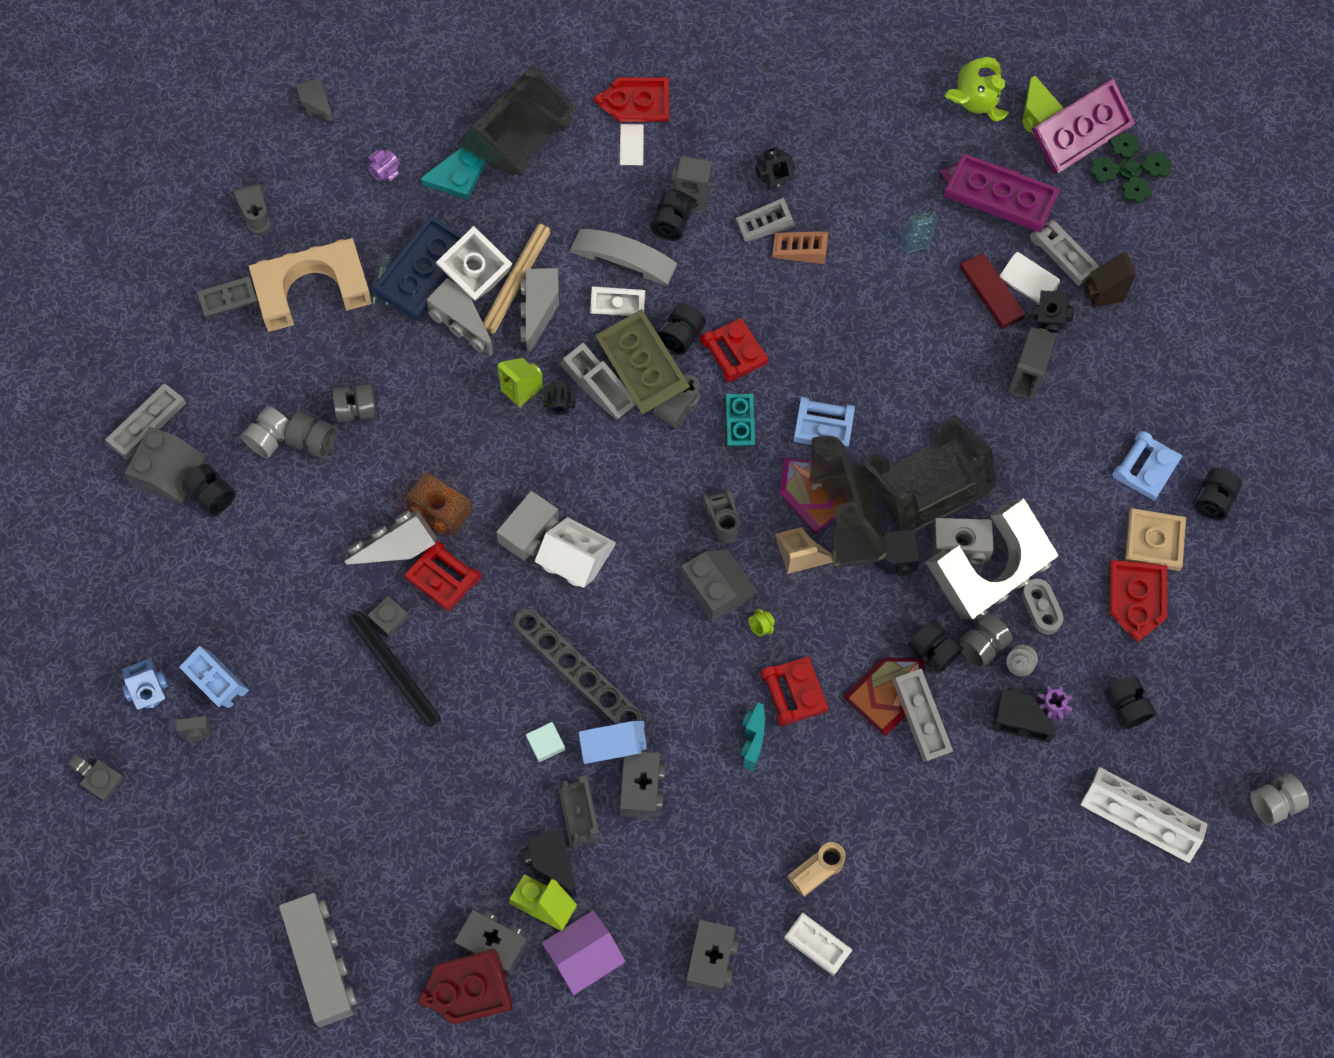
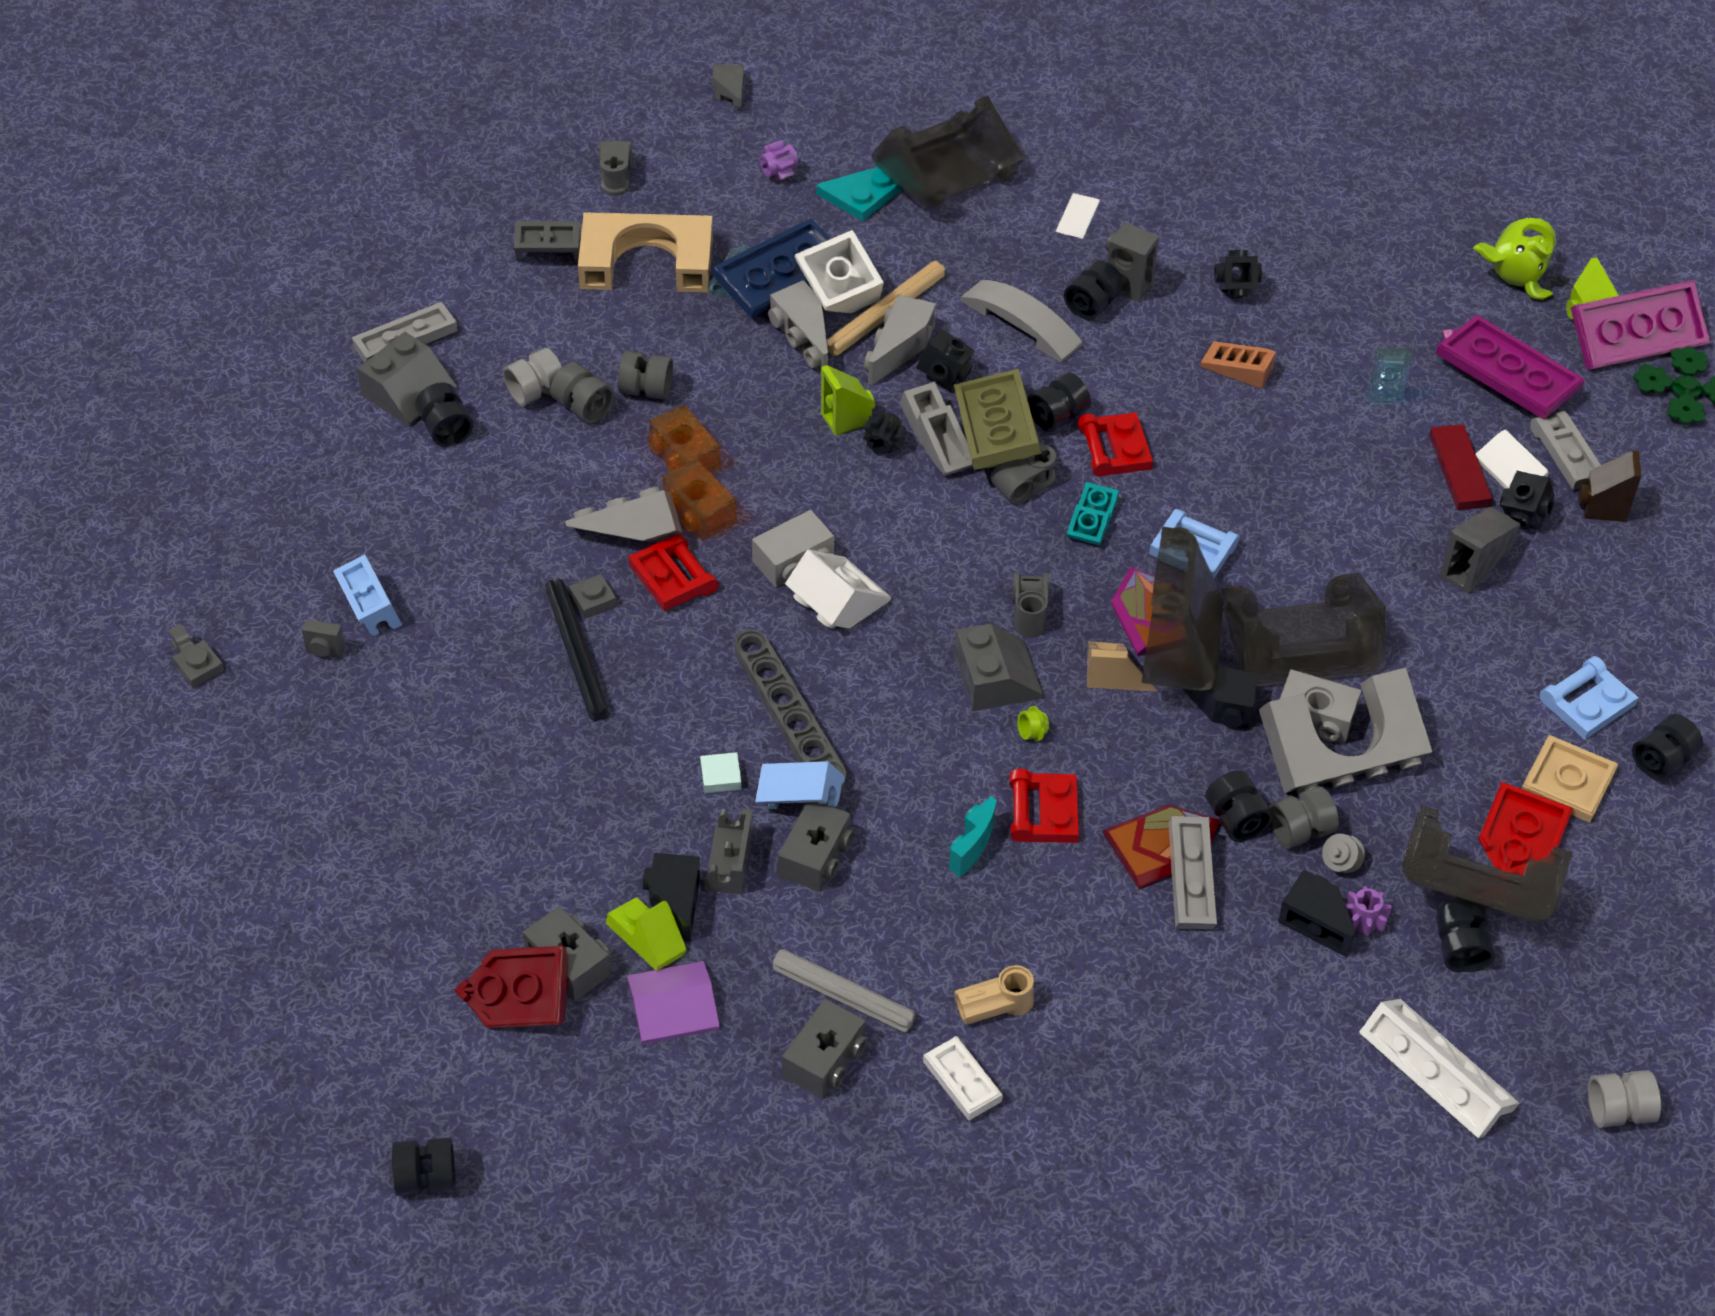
camera: 20 degrees right, 15 degrees down
(144, 684) = (296, 569): medium blue brick -> none
(317, 960) = (357, 909): light grey brick -> none
(400, 444) = (683, 439): none -> clear orange brick
(583, 316) = (946, 359): none -> black brick
(616, 301) = (996, 358): white slope -> none
(636, 99) = (1102, 172): red tile -> none
(705, 899) = (844, 990): none -> light grey axle
(777, 225) = (1224, 317): light grey slope -> none
(1042, 608) = (1393, 808): light grey plate -> none
(1165, 661) = (1525, 897): none -> clear smoke windscreen

